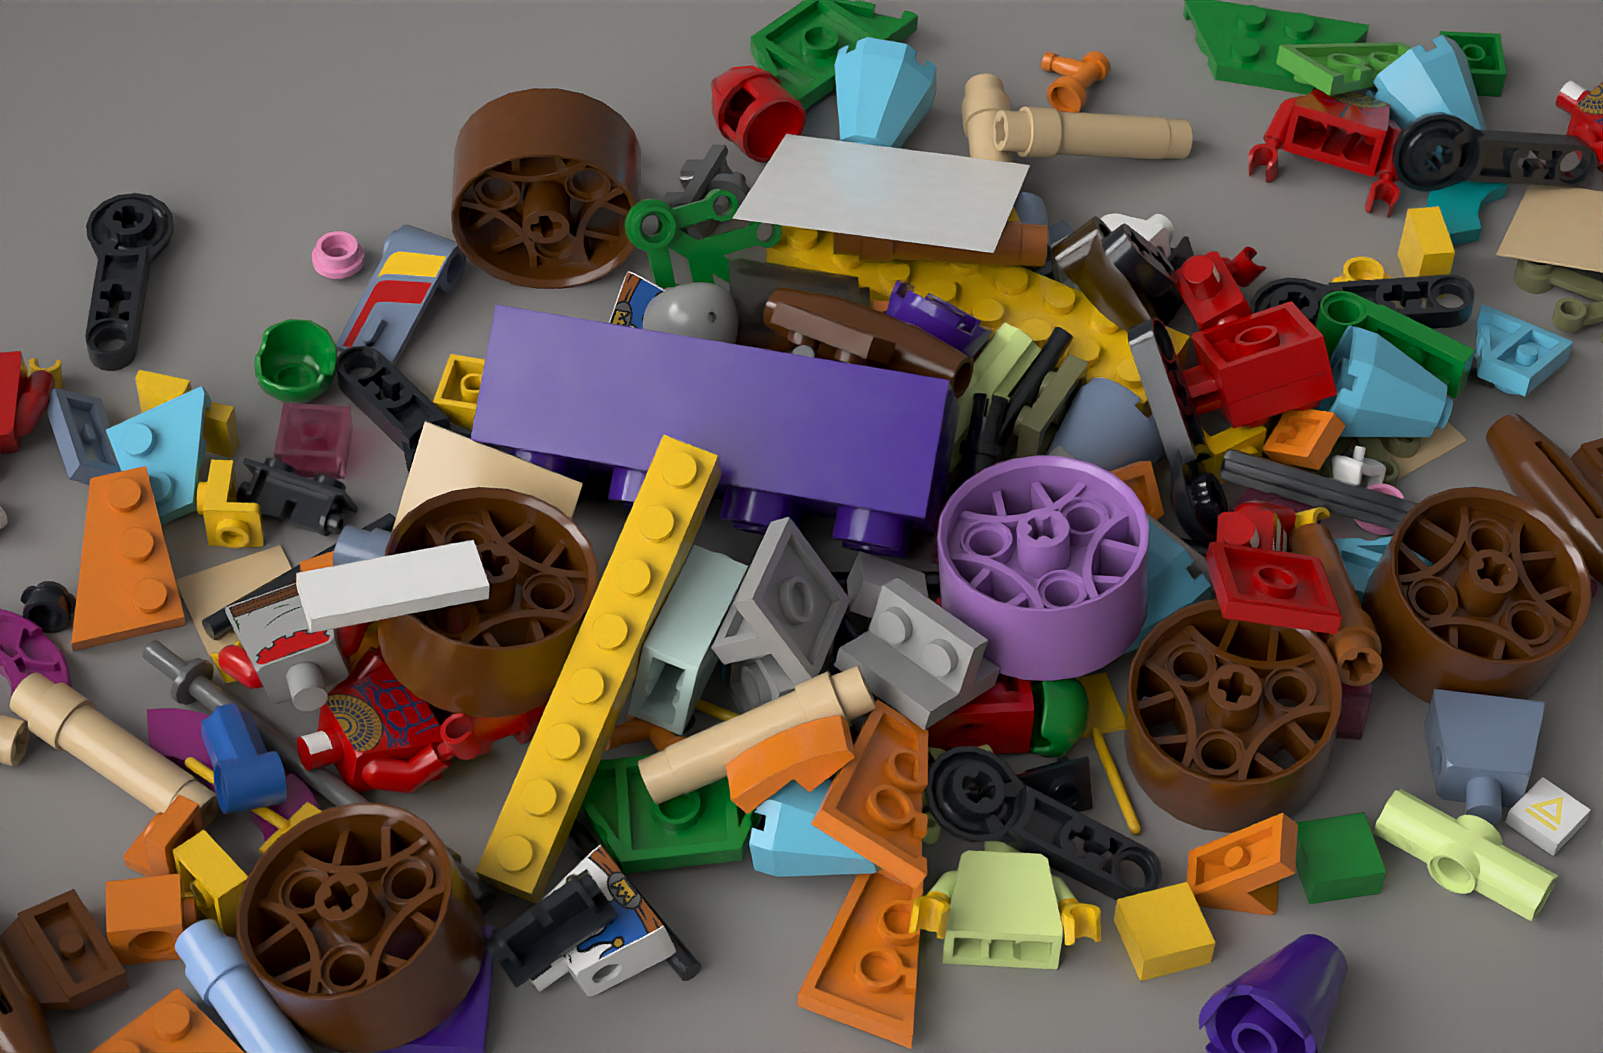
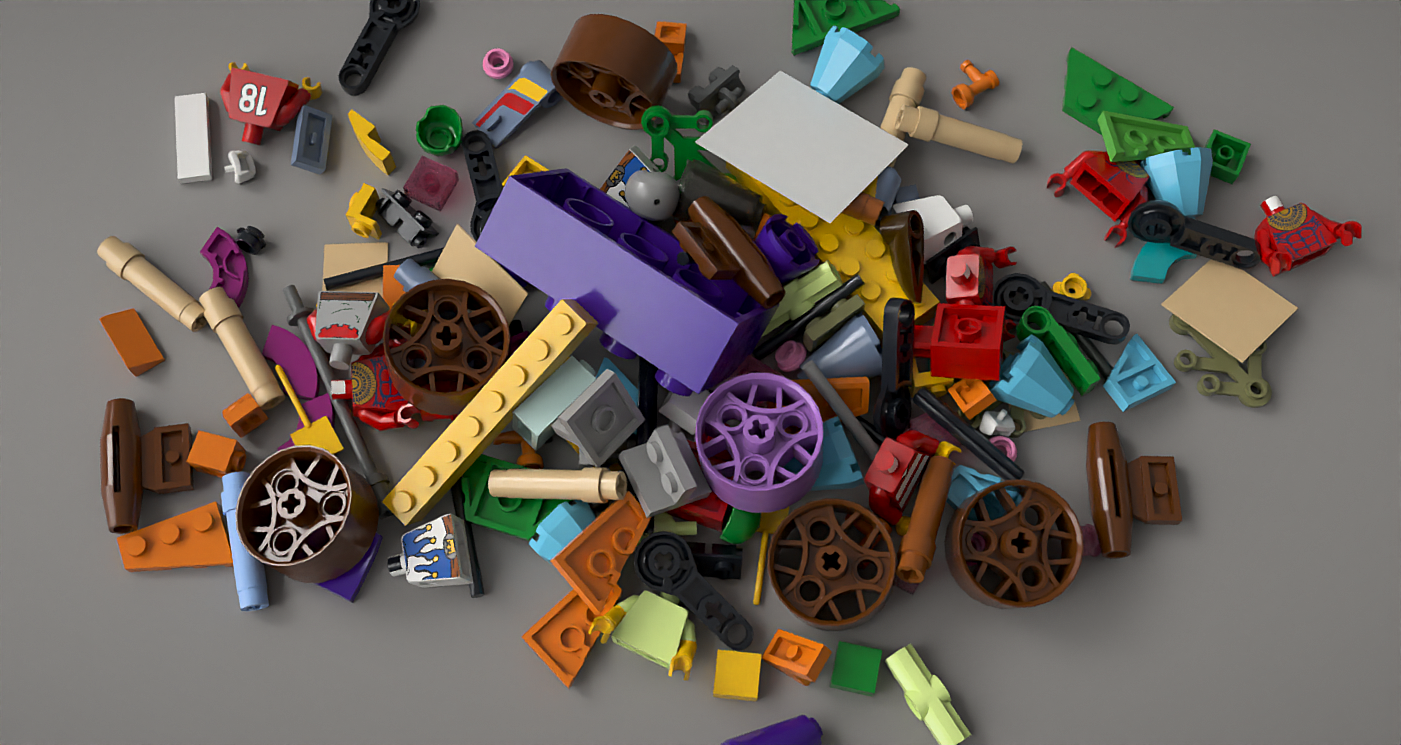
camera: 25 degrees right, 20 degrees up
(124, 565) = (297, 229): orange wing -> none
(171, 448) = (342, 169): medium azure wing -> none
(211, 878) = (253, 444): yellow piece -> none
(243, 769) = (296, 390): blue piece -> none
(392, 586) = (381, 335): white tile -> none
(550, 928) = (401, 553): black hinge -> none
(755, 111) = (770, 47): red helmet -> none
(801, 753) = (565, 512): orange slope -> none
(983, 436) = (780, 334): black pin -> none
(1139, 260) = (926, 248): black beam -> none
(1272, 587) = (883, 507): red tile -> none
(1425, 244) = (1119, 286): yellow piece -> none
(1482, 749) = (972, 637): sand blue torso -> none
(1547, 816) = (990, 689): white tile -> none

